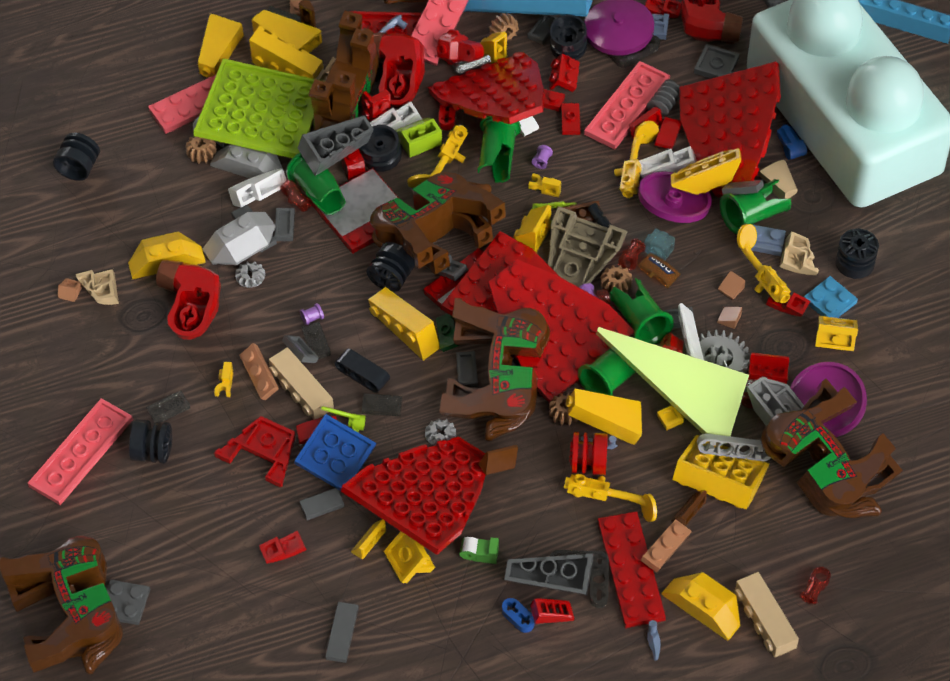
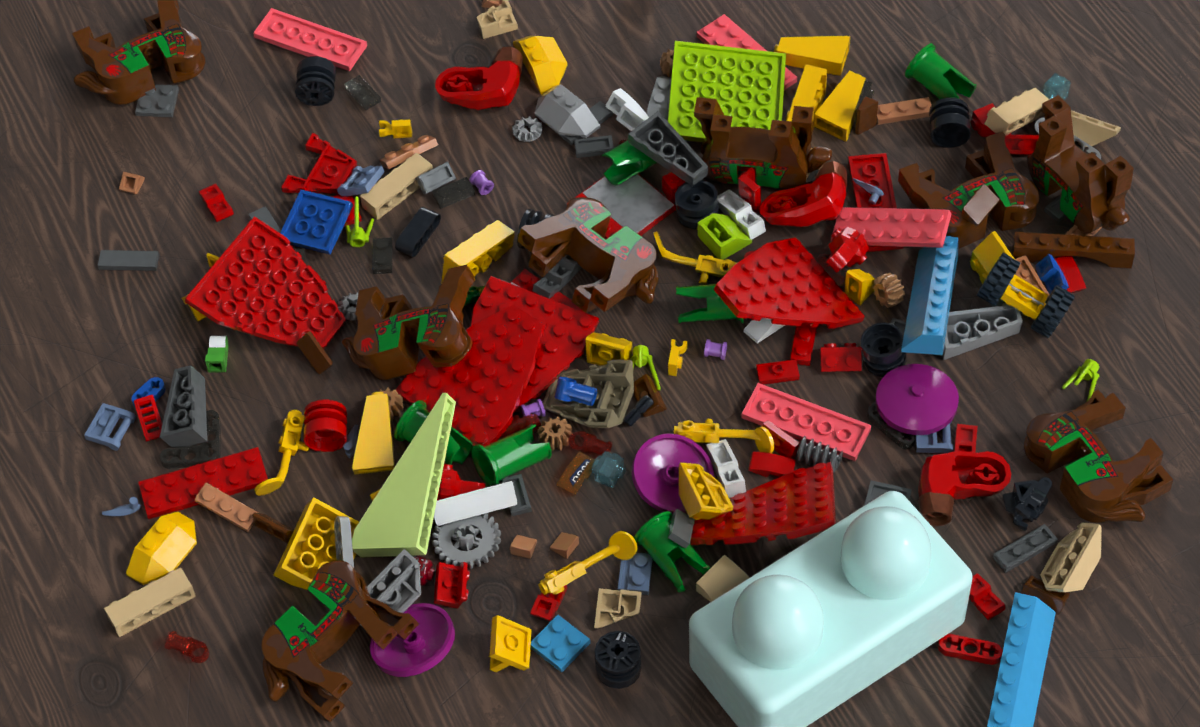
camera: 85 degrees right, 0 degrees up
(236, 628) = (131, 182): none -> nougat slope
(293, 405) = (361, 180): none -> sand blue plate
(551, 654) = (104, 424): none -> sand blue plate
(581, 255) = (569, 391): none -> blue piece

